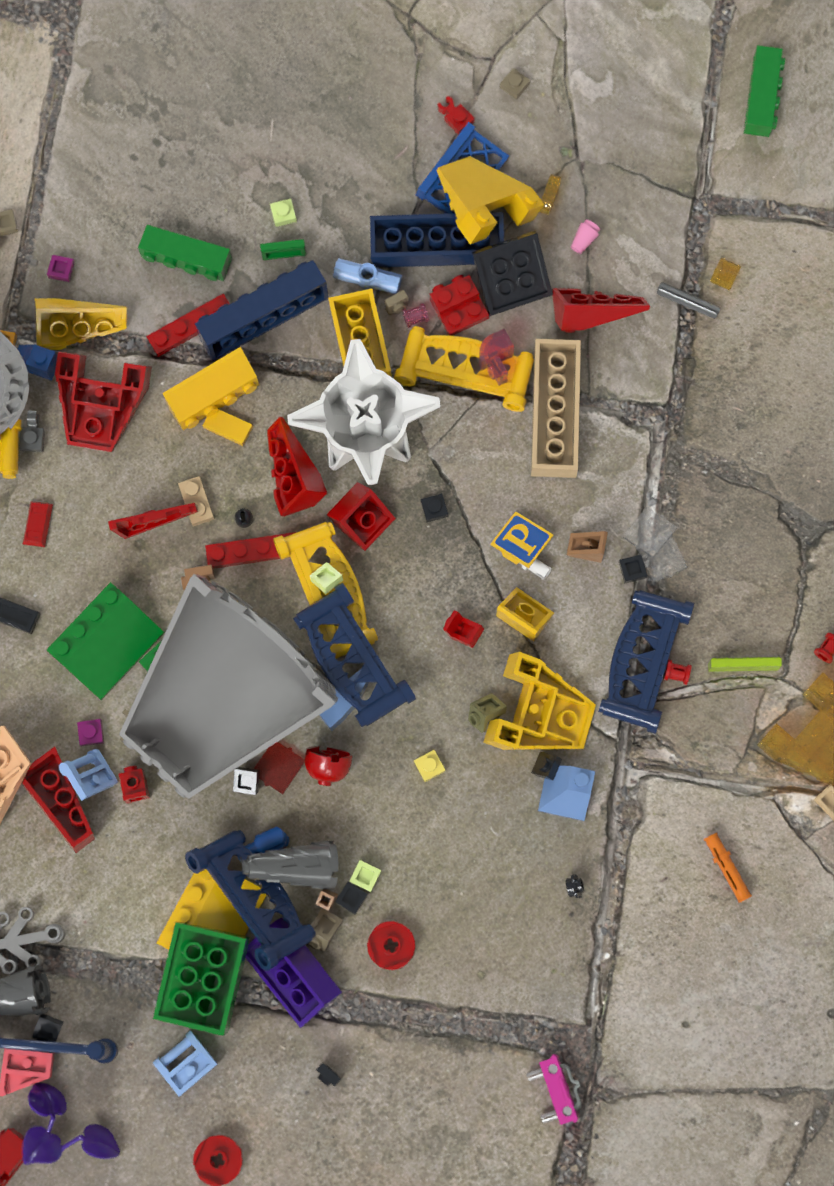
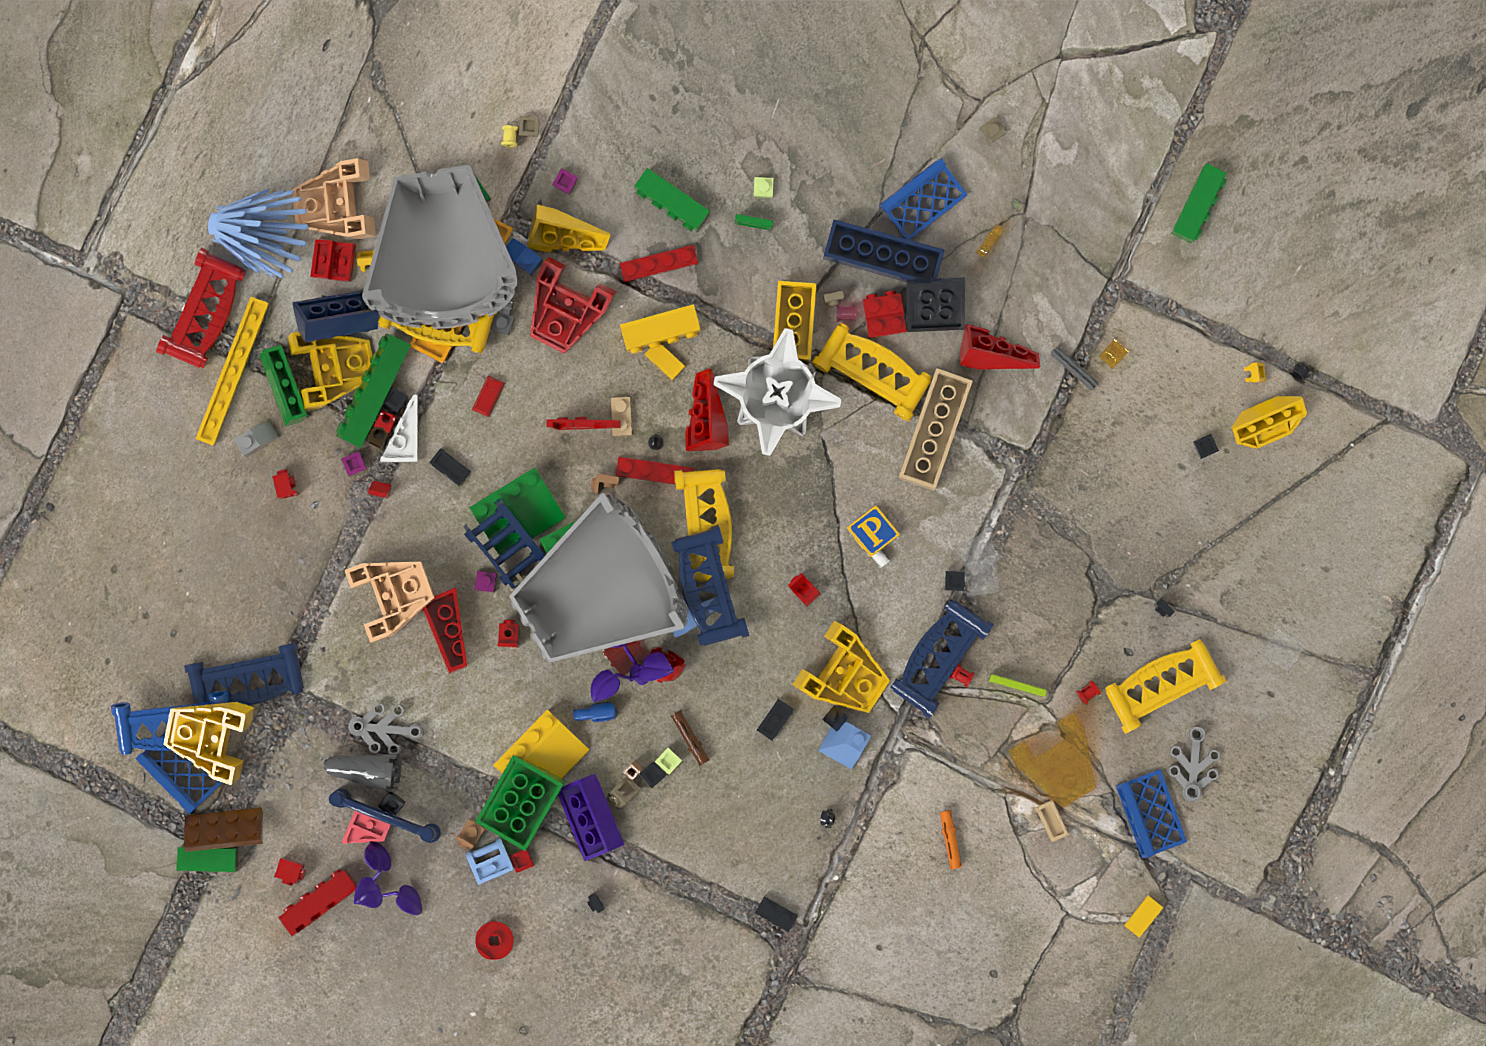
camera: 10 degrees right, 10 degrees up
(90, 781) = (479, 622): light blue plate -> none
(102, 655) = (512, 527): none -> dark blue fence
(153, 1038) = (470, 834): none -> medium nougat bracket
(224, 1050) = (521, 860): none -> red tile
(246, 780) = (597, 659): plate -> none
(262, 310) = (721, 273): dark blue brick -> none
(275, 941) = (585, 793): dark blue piece -> none
(297, 865) = (619, 739): dark grey cone -> none
(314, 765) = (654, 668): none -> dark purple plant
(326, 578) = (707, 517): yellowish green plate -> none
(354, 273) = (806, 260): light blue piece -> none
(361, 515) = (750, 471): red slope -> none
(390, 848) = (701, 757): none -> reddish brown pin
(403, 952) = (664, 812): red plate -> none
(429, 766) = (744, 689): light yellow plate -> none
(434, 508) = (811, 481): black plate -> none
(457, 116) = (935, 146): red plate -> none
(476, 789) = (775, 719): none -> black plate
(480, 189) = (931, 222): yellow wedge -> none
(485, 710) = (801, 660): olive bracket -> none
(492, 352) = (900, 366): clear pink brick -> none
(524, 613) = (857, 590): yellow slope -> none
(549, 1021) = (776, 914): none -> black plate
(558, 1090) = (766, 957): dark pink piece -> none
(585, 236) = (1007, 286): bright pink cone -> none
(587, 545) = (924, 551): medium nougat slope -> none

